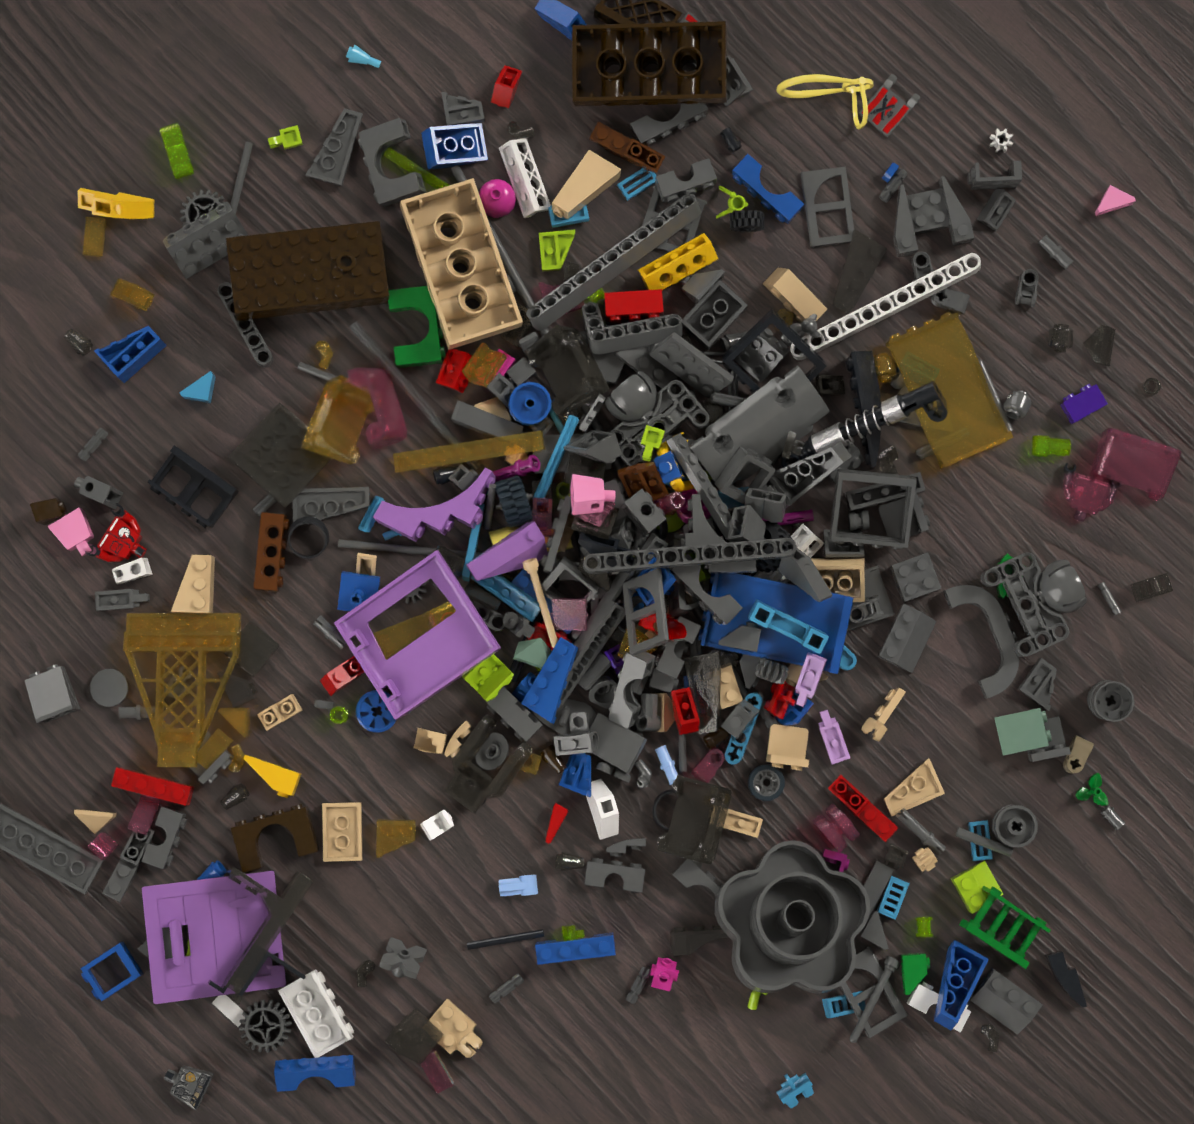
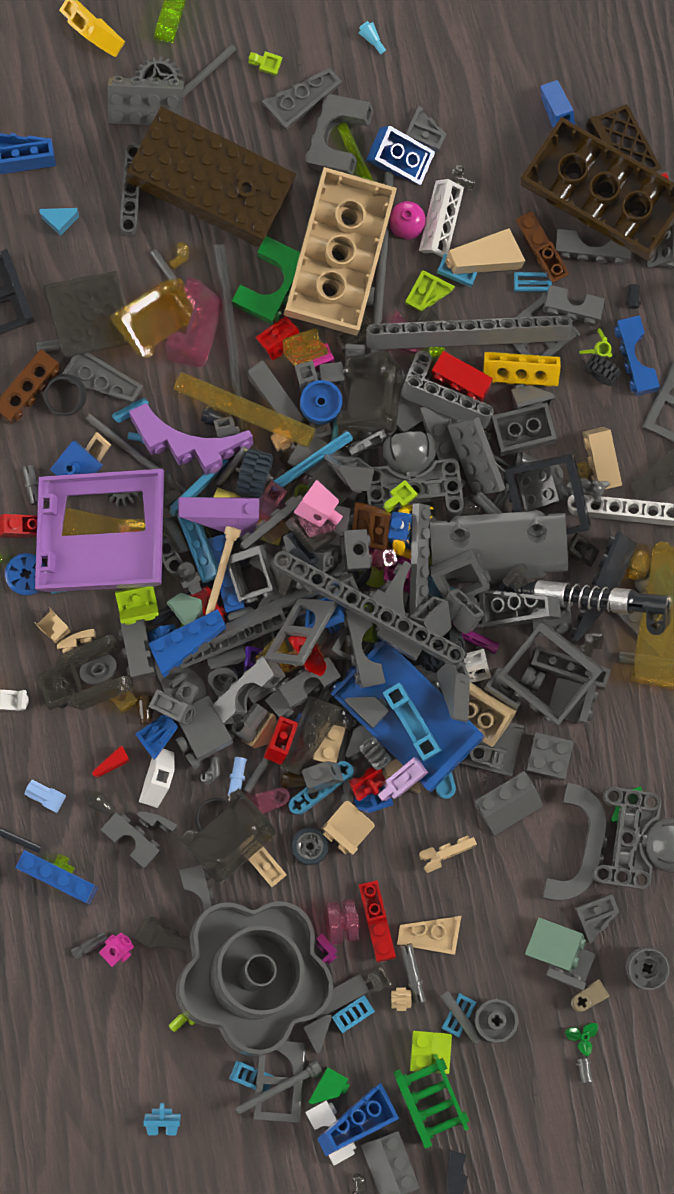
camera: 25 degrees right, 5 degrees down
(94, 236) = (57, 41): clear yellow tile -> none
(132, 294) = (56, 107): clear yellow slope -> none
(494, 407) = (291, 388): tan slope -> none
(506, 86) = (475, 134): red slope -> none
(519, 468) = (277, 449): magenta pin -> none
(569, 614) = (237, 595): clear pink piece -> none
(833, 738) = (390, 846): lavender hinge -> none
(924, 926) = (362, 1056): clear neon green bush -> none

